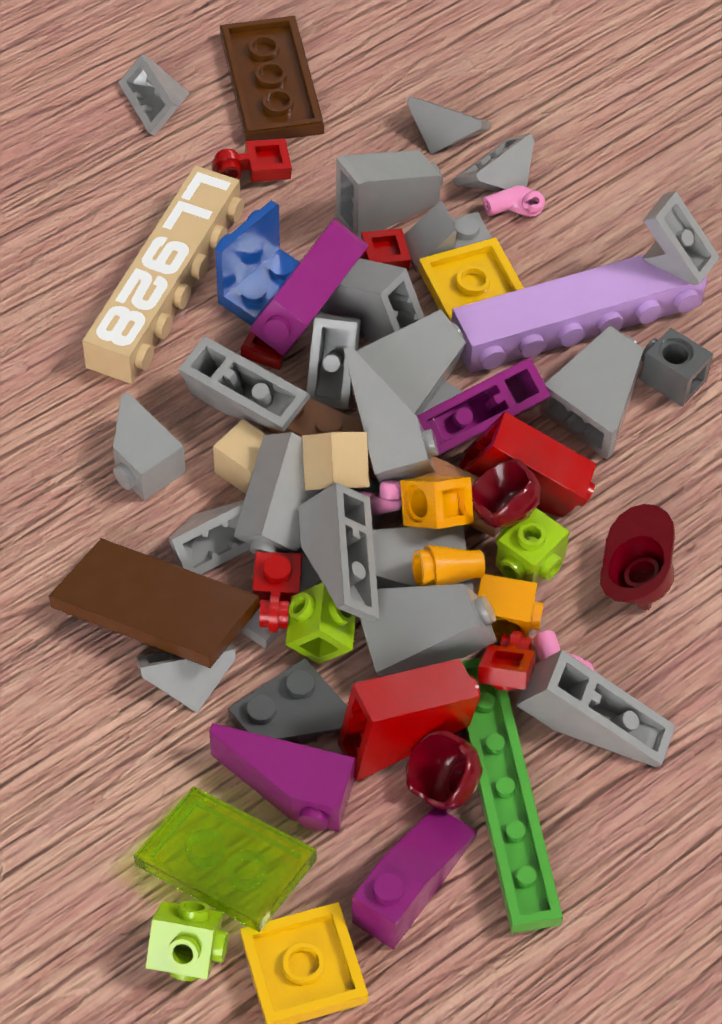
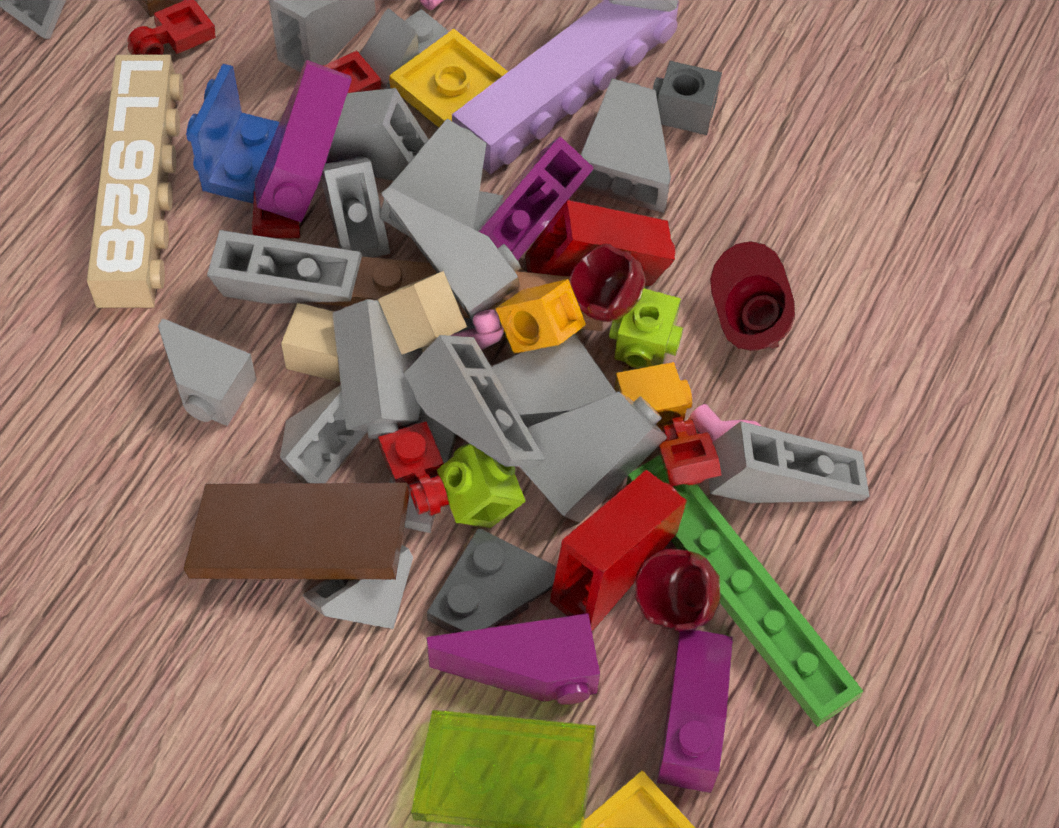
camera: 25 degrees left, 5 degrees up
(446, 565) = (583, 380): light orange cone -> none

